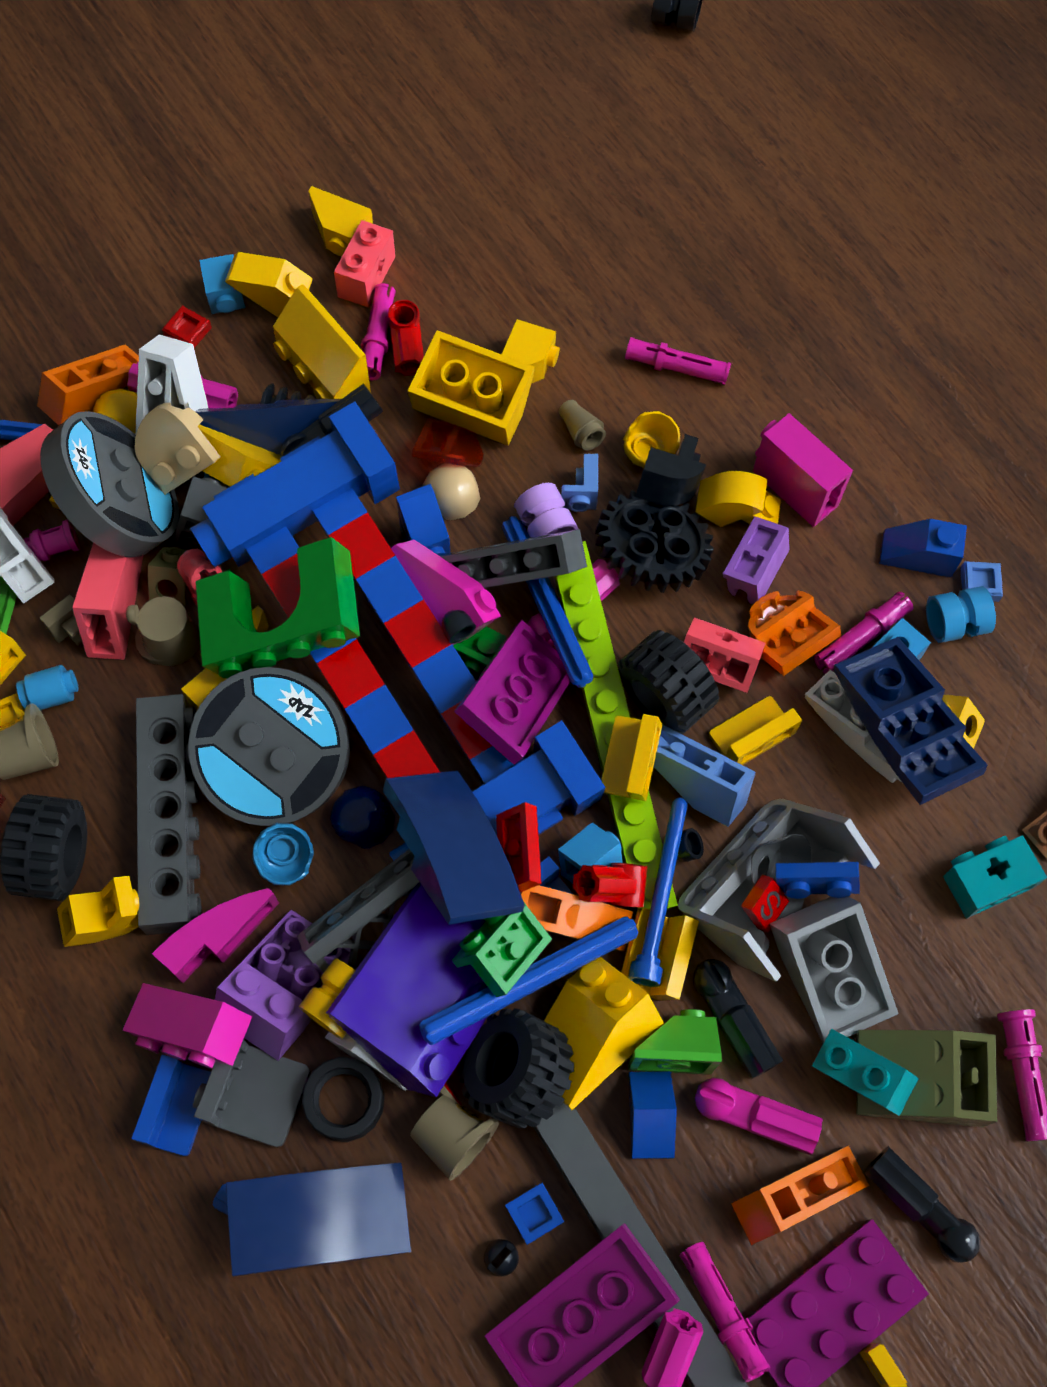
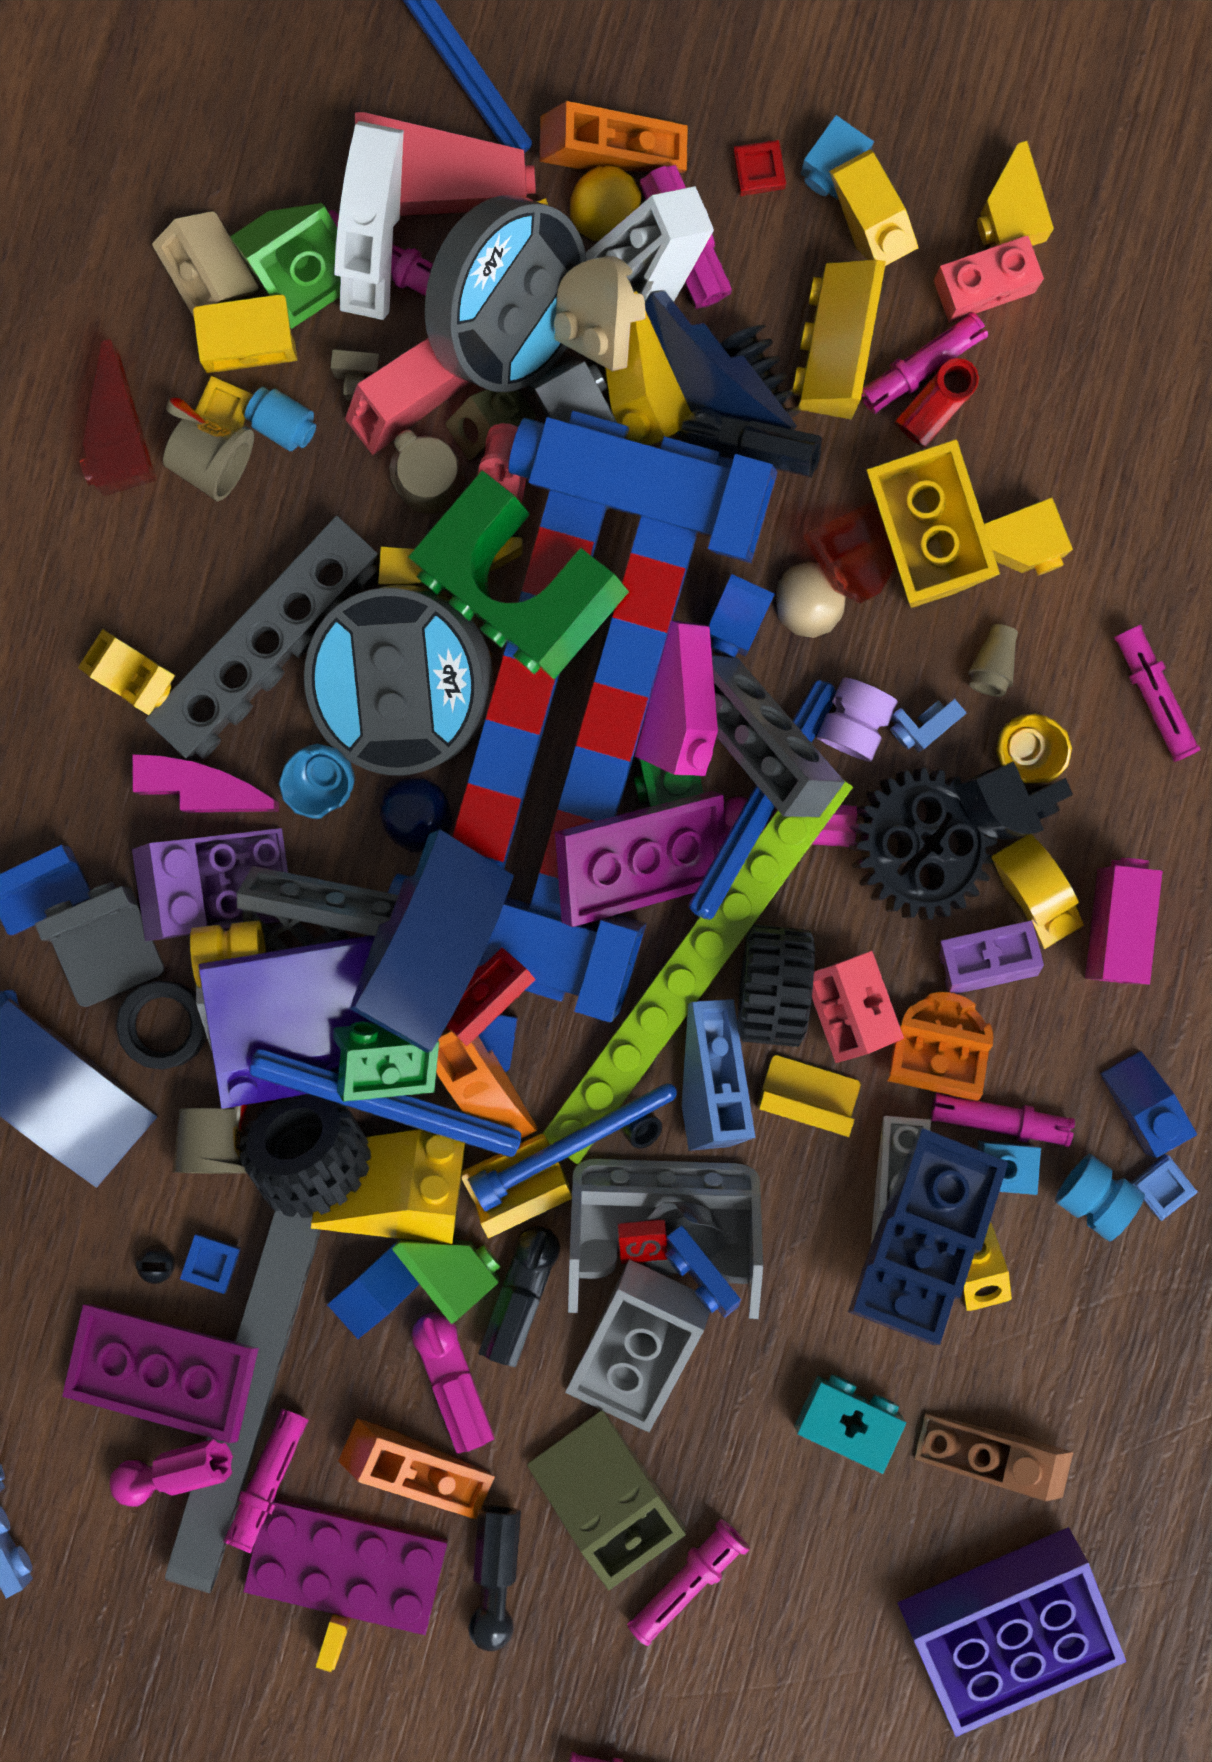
camera: 45 degrees right, 20 degrees up
(43, 847) = (135, 574): black tyre -> none
(186, 1026) = (98, 845): dark pink brick -> none
(457, 625) = (649, 751): black hinge -> none
(589, 847) = (550, 1055): dark azure brick -> none
(616, 884) = (541, 1103): red piece -> none
(631, 756) = (669, 1015): yellow panel -> none
(865, 1072) = (559, 1447): teal brick -> none

